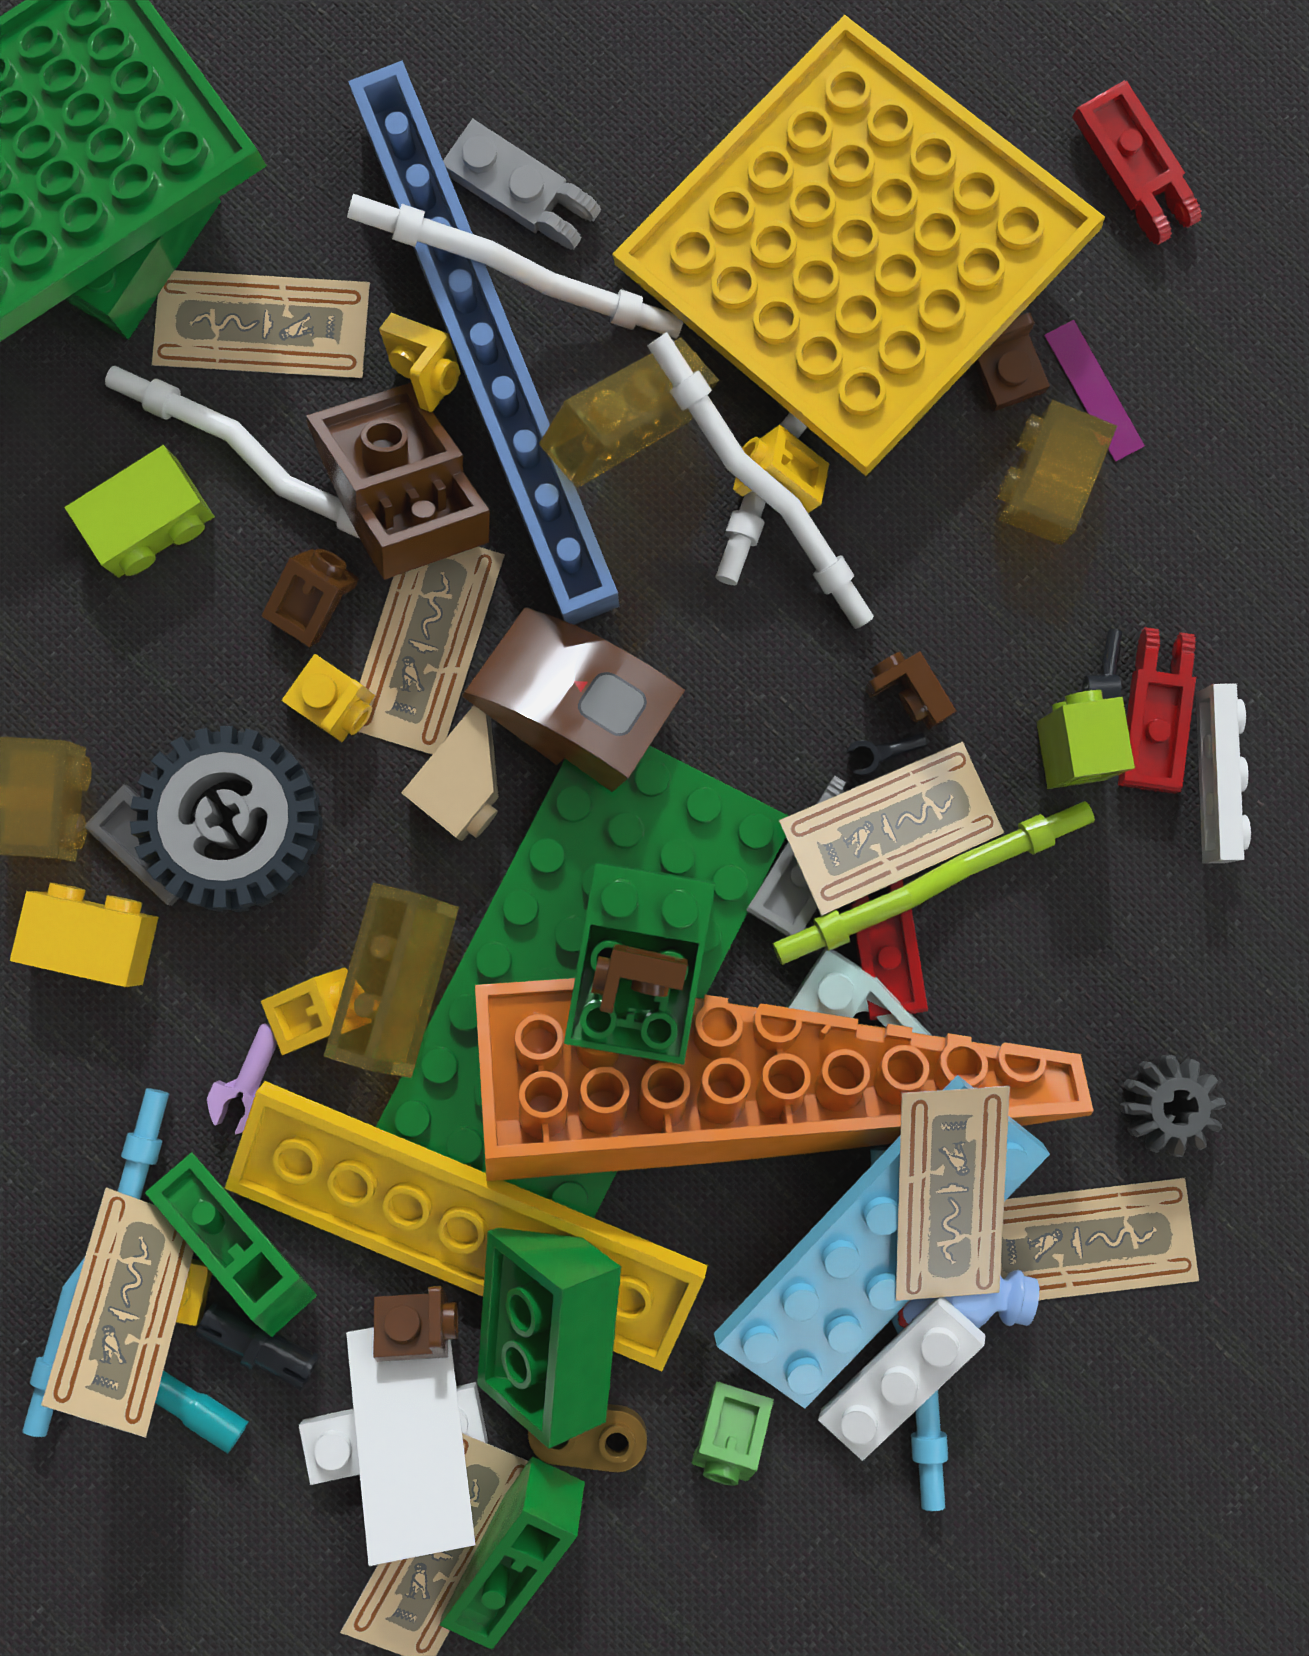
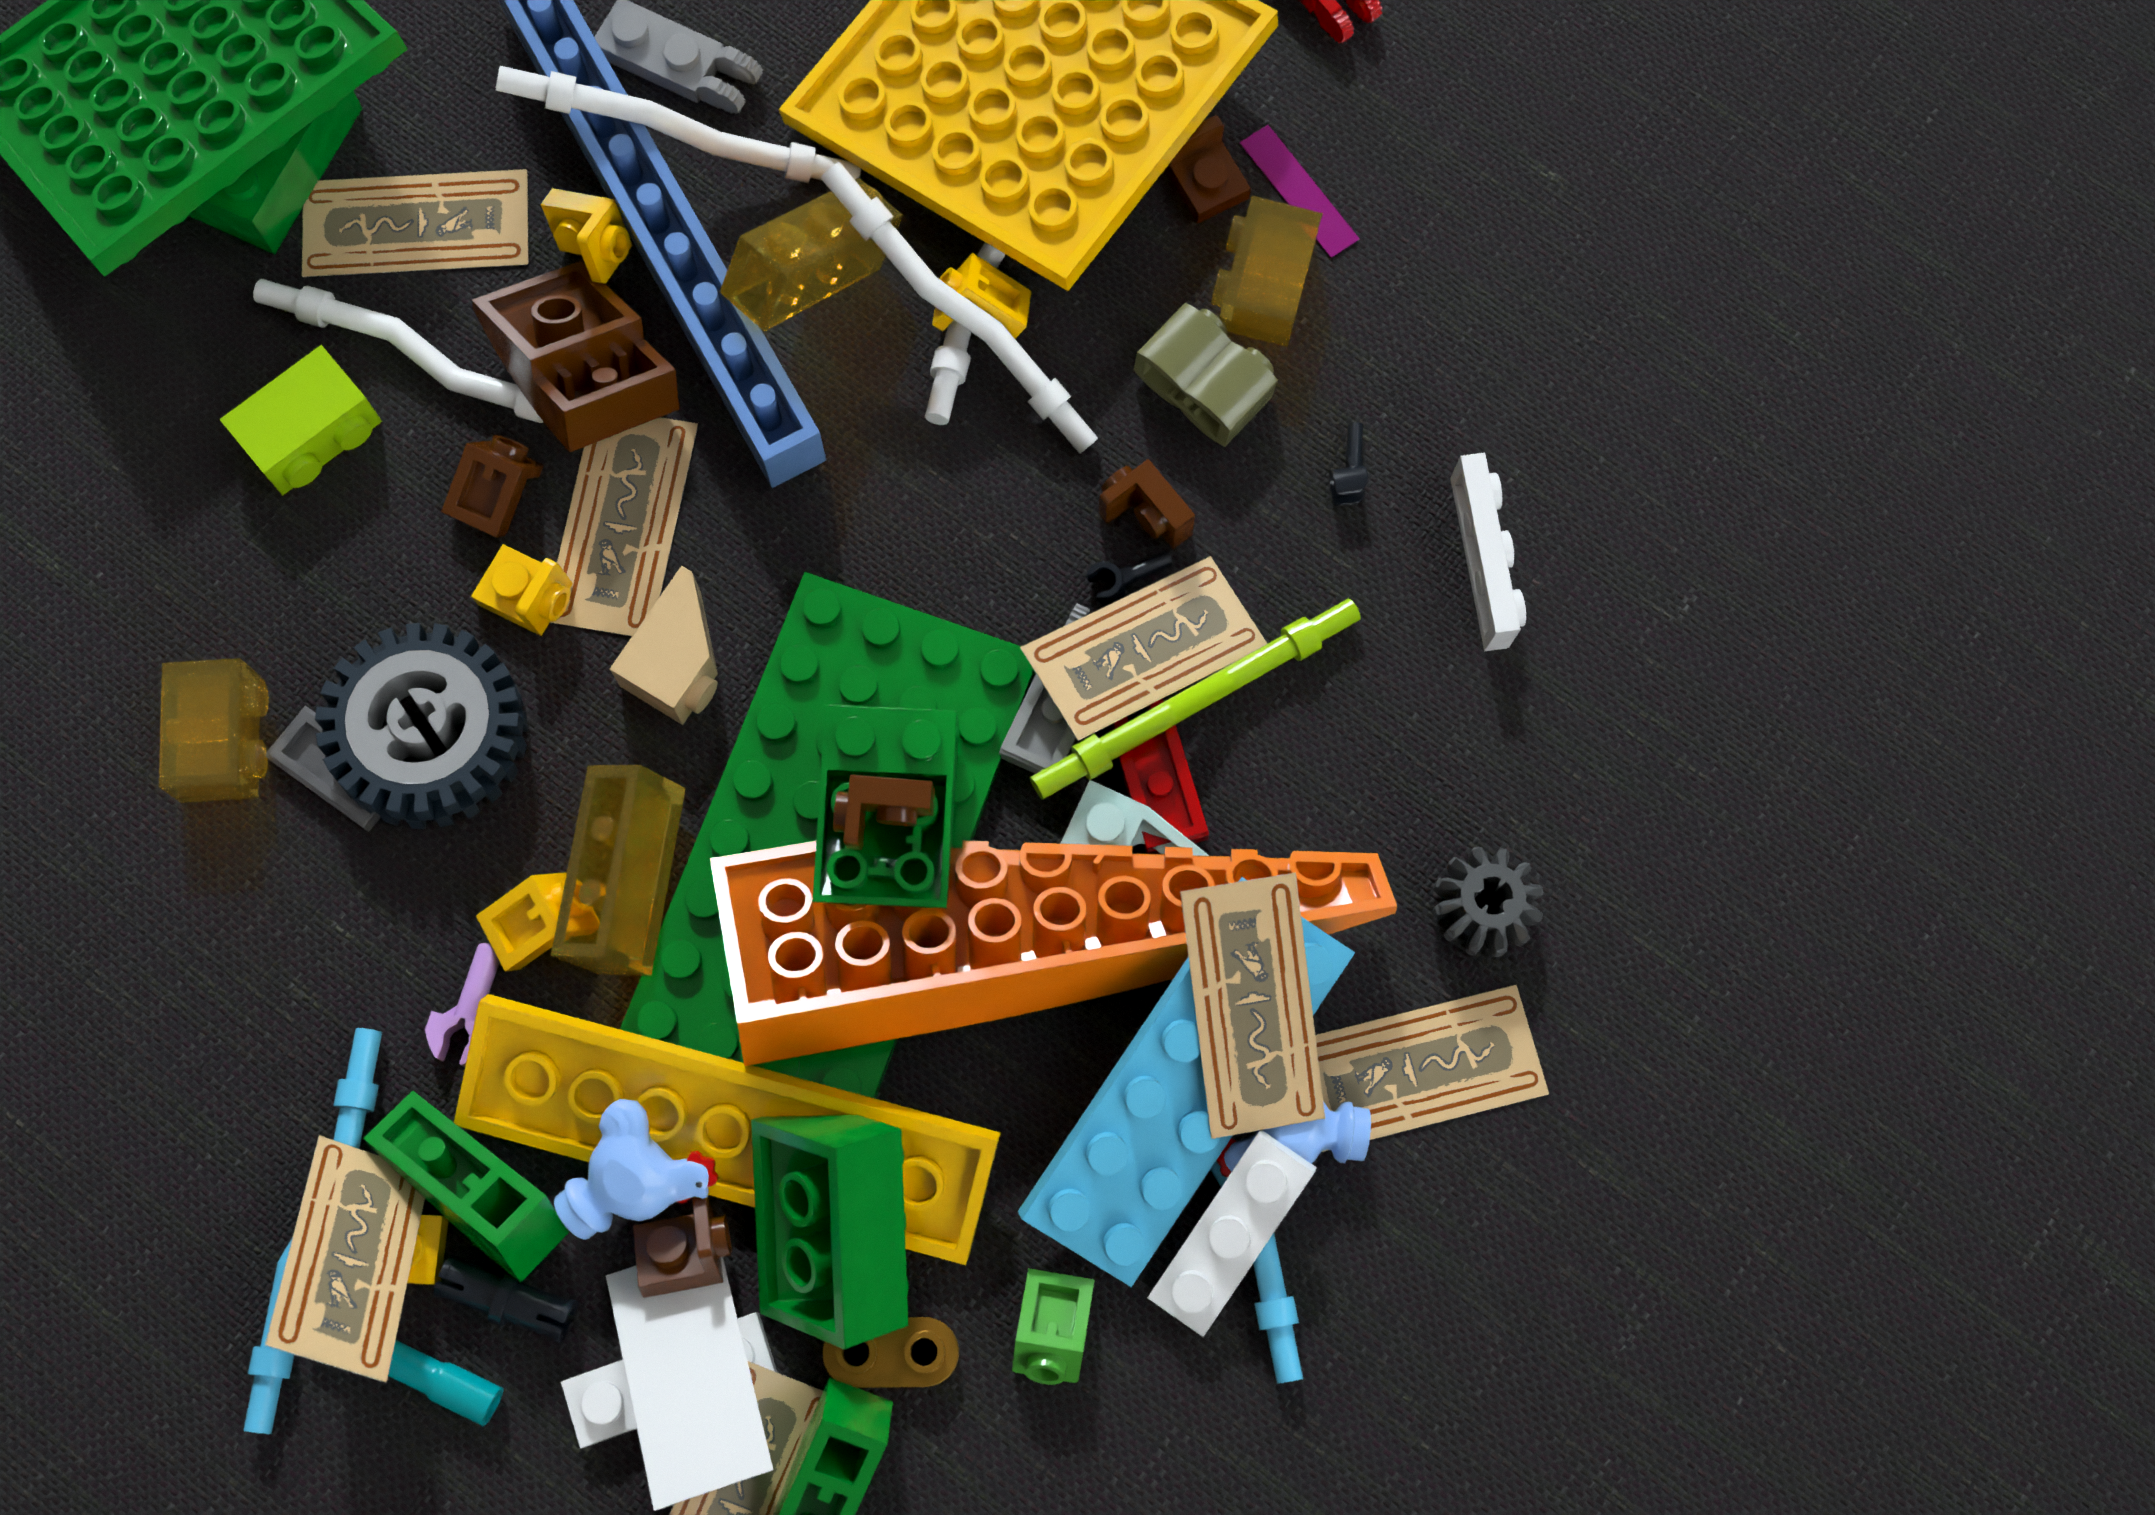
camera: 10 degrees left, 10 degrees down
(84, 937) = (274, 869): yellow brick -> none
(375, 1263) = (630, 1175): none -> light blue animal
(574, 696) = (785, 549): reddish brown slope -> none
(984, 567) = (1206, 373): none -> olive brick
(1085, 740) = (1334, 529): lime brick -> none
(1160, 714) = (1412, 504): red hinge -> none

